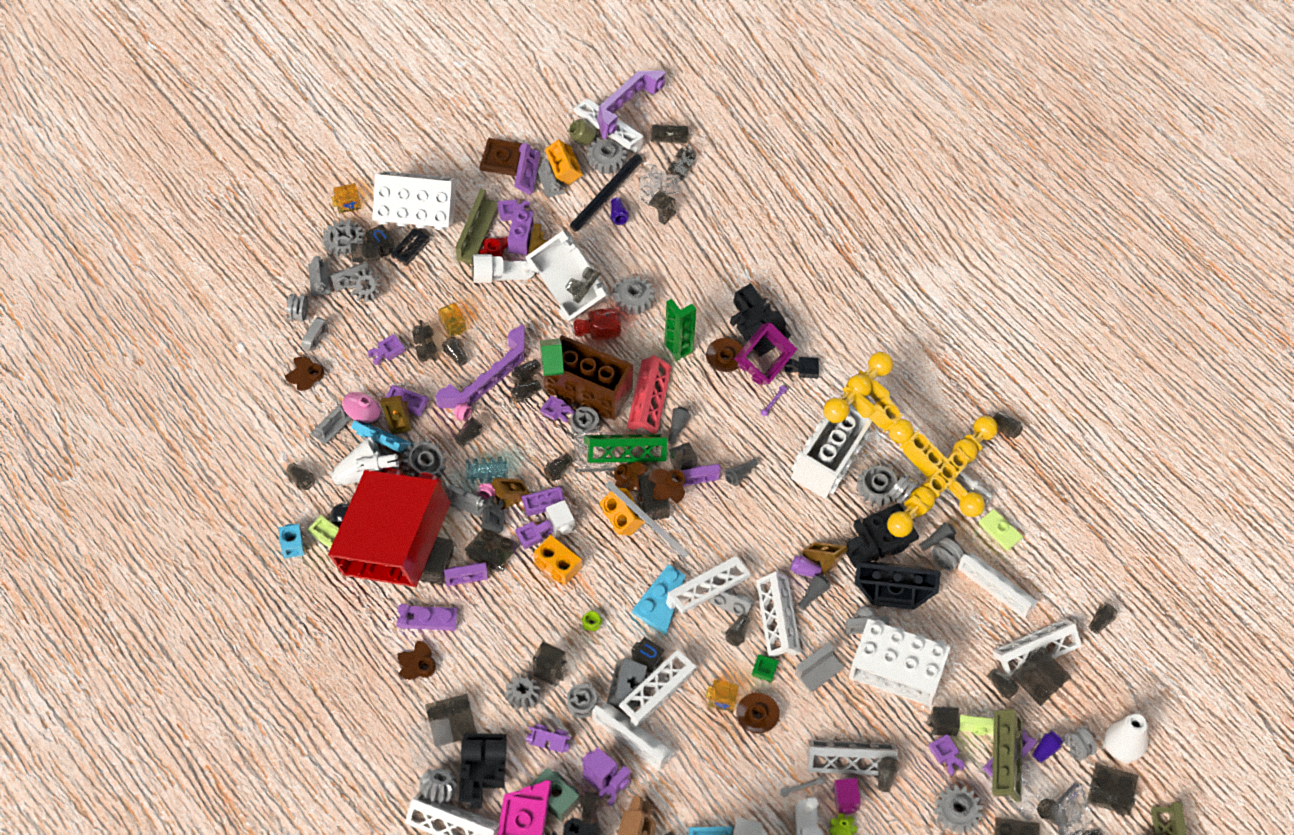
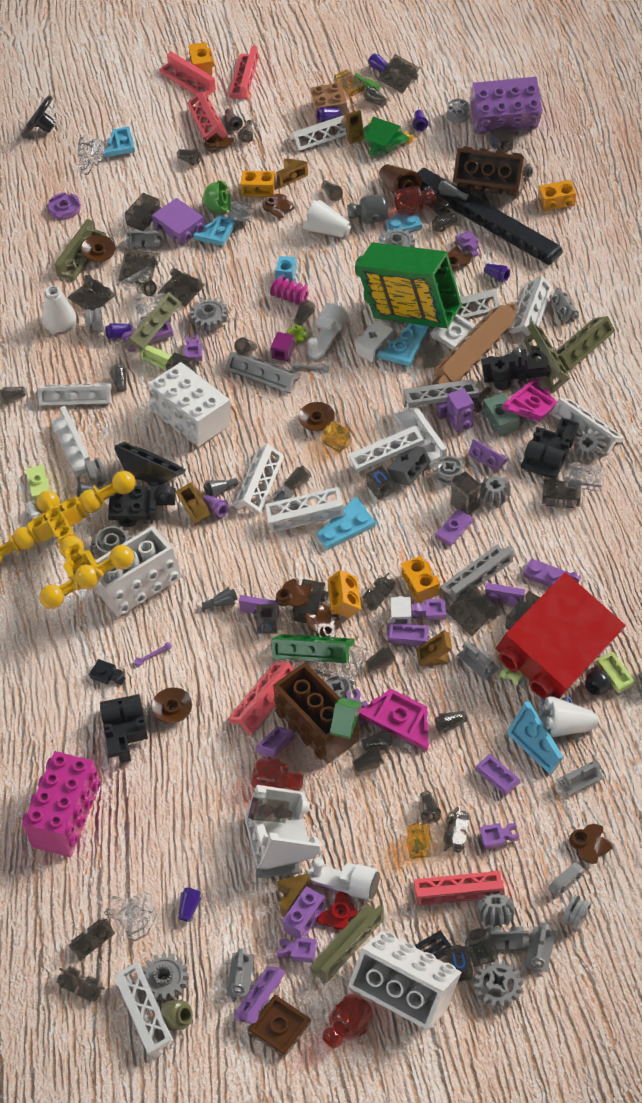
camera: 150 degrees left, 5 degrees down
(302, 478) = (626, 735): clear smoke cone -> none
(346, 198) = (477, 1036): clear yellow brick -> none
(361, 407) = (551, 783): bright pink dish -> none
(376, 462) = (553, 690): white pin -> none
(396, 414) = (512, 756): pearl gold slope -> none
(404, 291) = (457, 891): none -> coral fence
(414, 661) = (575, 545): reddish brown plate -> none
(427, 452) = (503, 702): light grey gear -> none
(450, 397) = (453, 758): medium lavender slope -> none
(453, 167) = (347, 1020): none -> clear red piece
(462, 411) = (447, 743): bright pink plate -> none
(486, 469) = (448, 675): clear light blue piece -> none
(486, 491) = (455, 660): bright pink plate -> none
(492, 516) = (460, 634): dark grey plate -> none
(496, 589) = (481, 575): none -> light grey fence
(516, 416) = (399, 716): none -> dark pink wing
(549, 631) = (454, 527): none -> medium lavender plate
(563, 162) = (217, 980): light orange brick -> none
(594, 616) = (413, 521): lime plate -> none
(595, 526) = (372, 597): none -> clear smoke hinge
(606, 192) = (190, 933): black axle -> none
(617, 346) = (275, 742): none -> medium lavender plate
(633, 295) = (223, 790): light grey gear -> none
(637, 789) = (436, 393): none -> light grey fence
(647, 80) = (149, 989): medium lavender slope -> none
(647, 519) = (328, 577): white sticker -> none
(665, 205) = (140, 882): clear smoke bracket -> none
(679, 329) = (205, 713): green fence -> none
(679, 419) = (247, 663): dark grey cone -> none
(763, 232) = (61, 803): none -> dark pink brick
(764, 668) = (291, 449): green tile -> none
(779, 341) = (138, 680): magenta window -> none
(818, 668) = (250, 435): light grey panel -> none
(857, 624) = (193, 448): light grey tile -> none
(901, 486) = (99, 516): light grey wheel -> none
(1041, 675) = (83, 368): clear smoke hinge -> none

